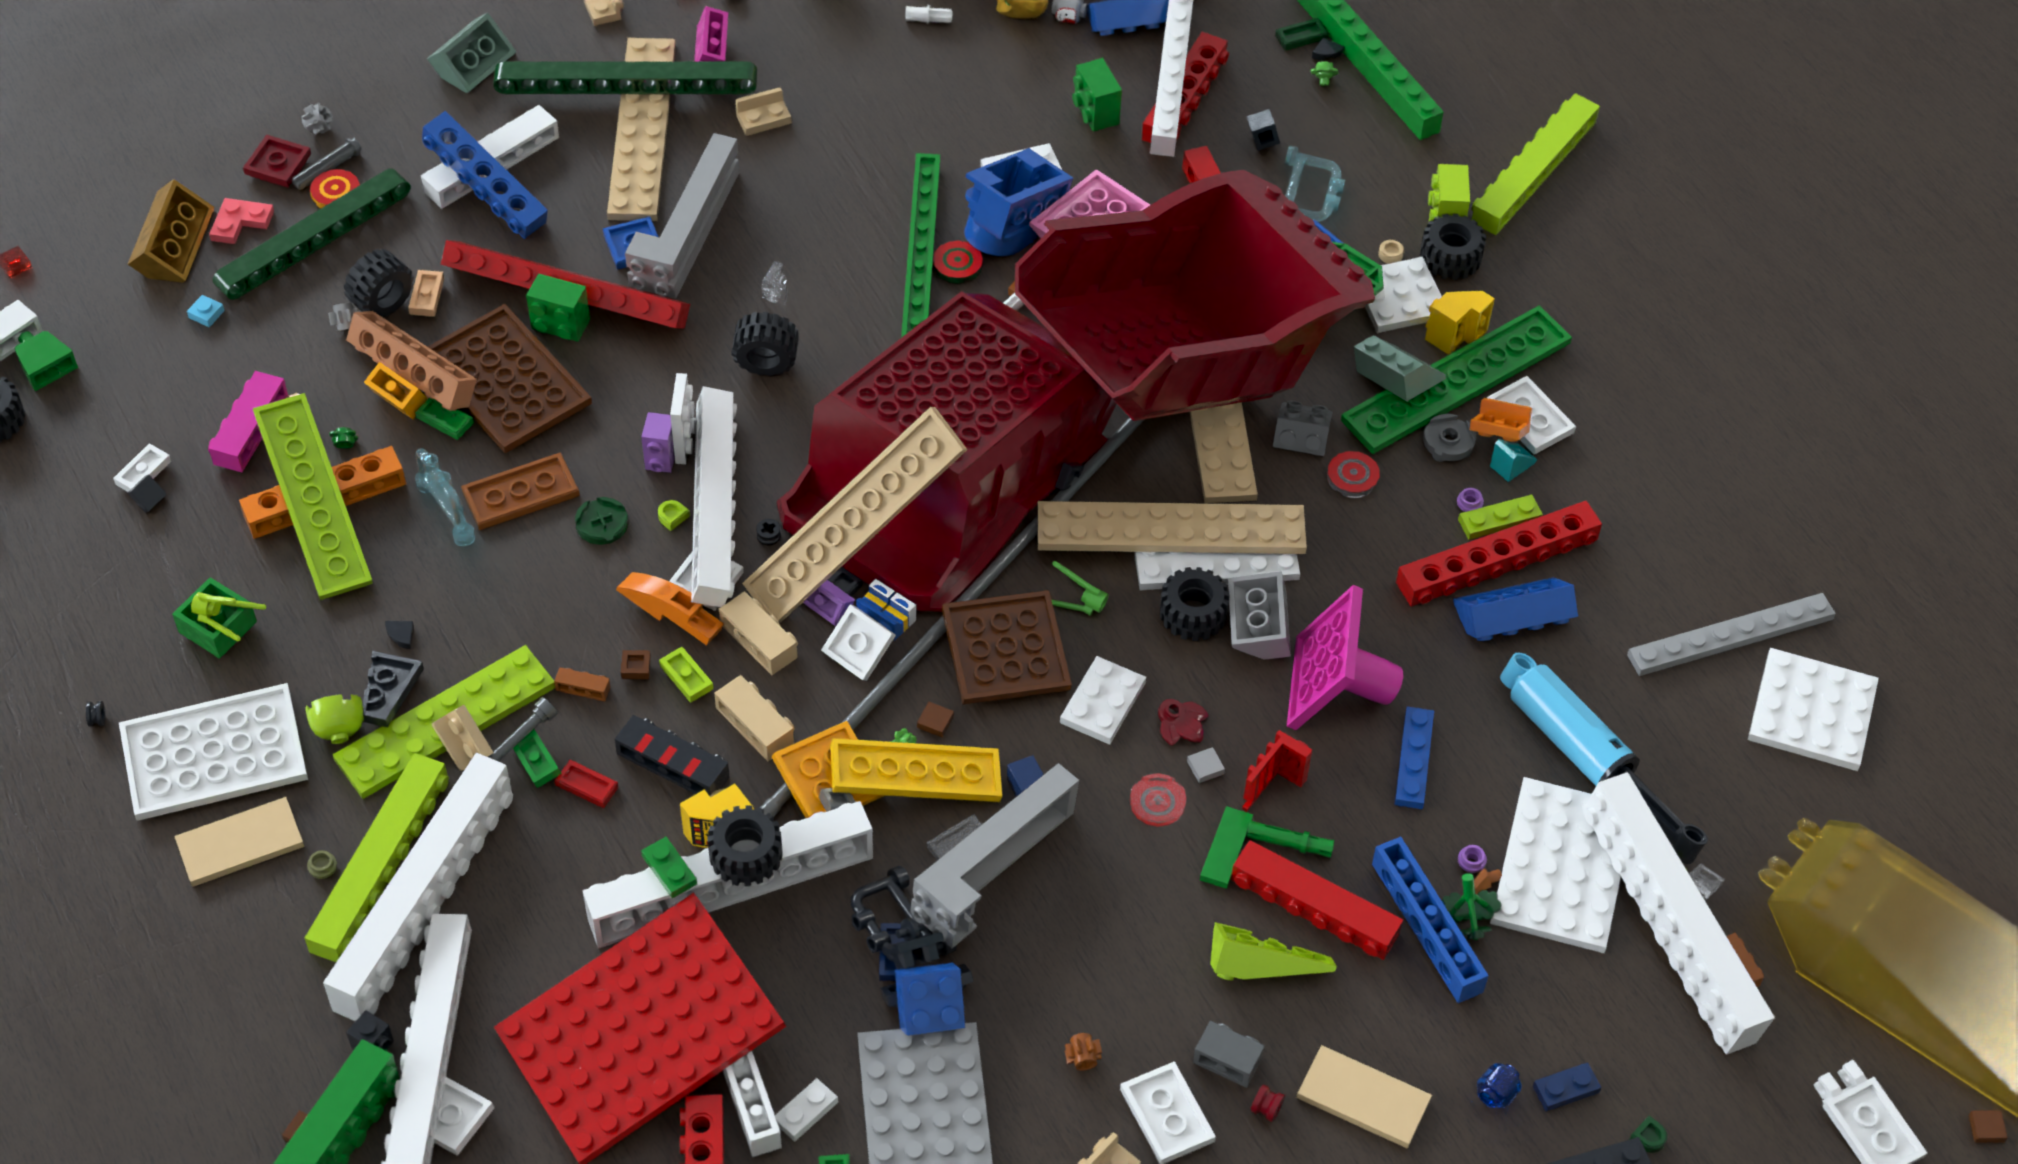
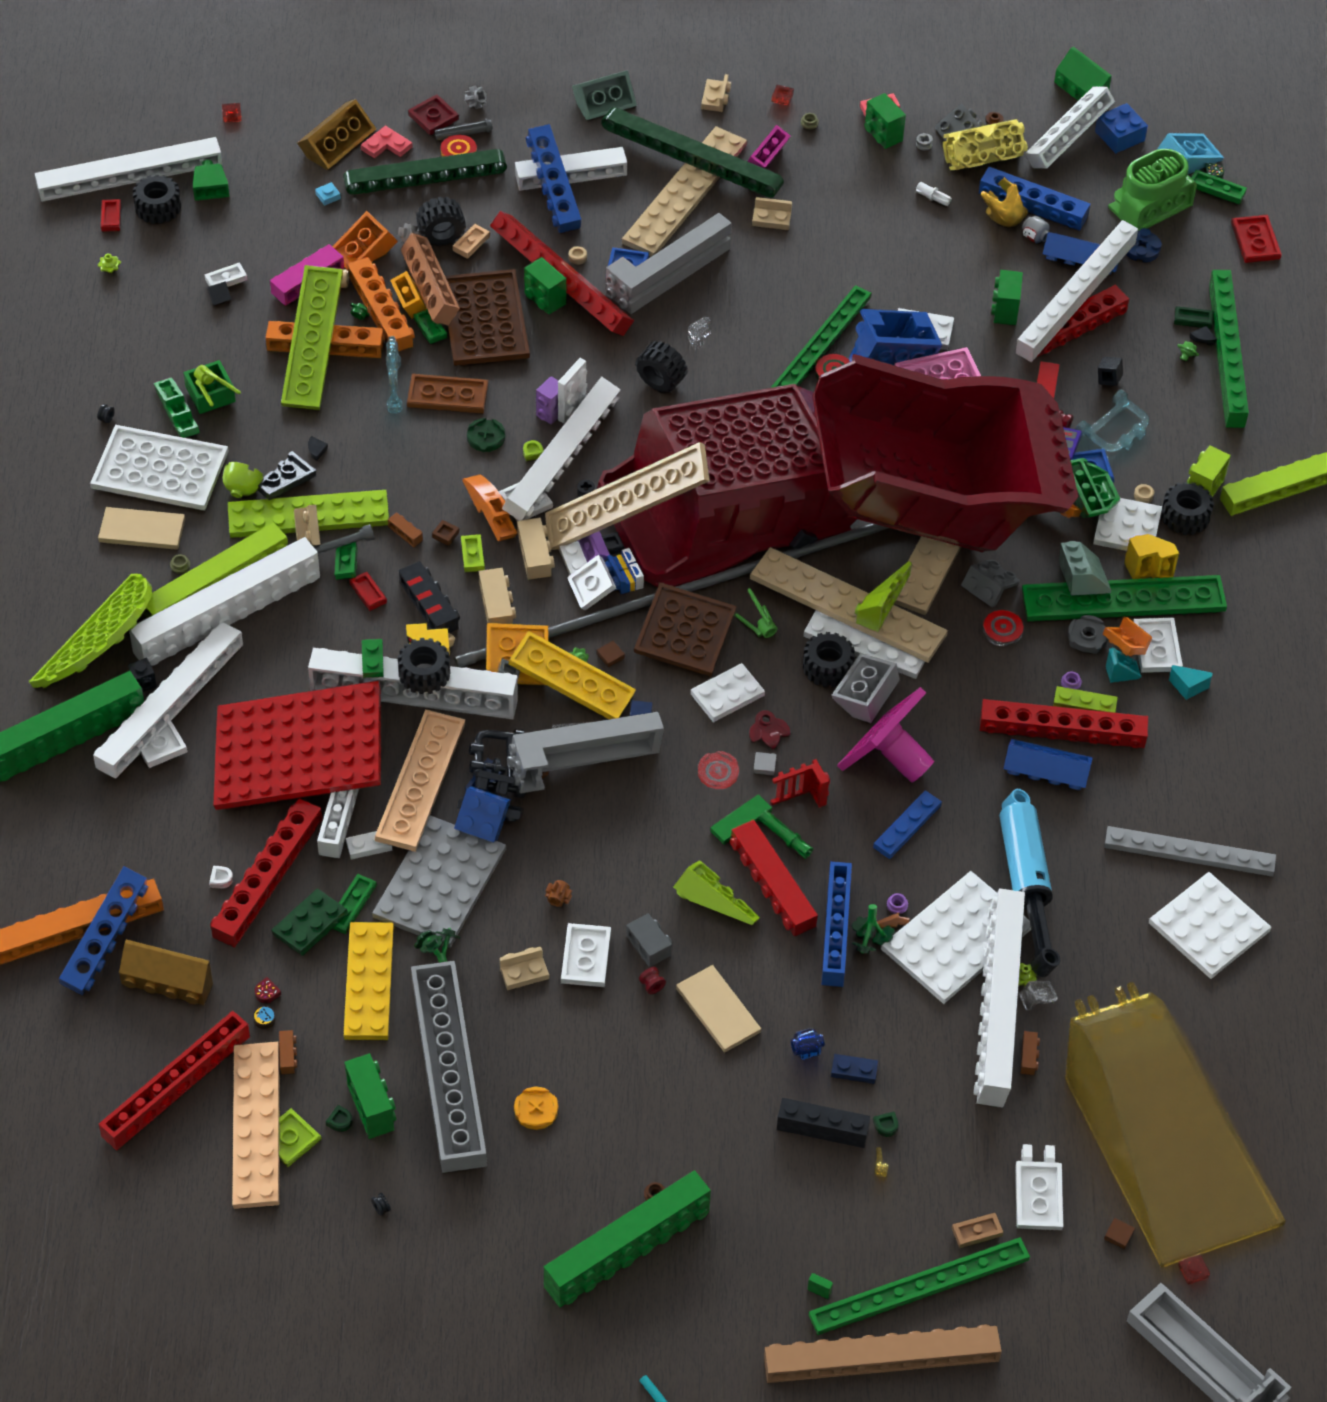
camera: 30 degrees right, 0 degrees up
(184, 664) = (176, 407): none -> green slope
(280, 1006) = (99, 632): none -> lime plate
(295, 349) = (365, 240): none -> orange slope
(371, 421) = (380, 302): none -> orange brick
(566, 256) = (577, 255): none -> tan tile
(811, 623) = (572, 556): none -> white plate
(819, 995) = (420, 780): none -> light nougat plate
(1217, 505) = (881, 600): none -> lime wedge
(1591, 440) = (1189, 681): none -> teal slope

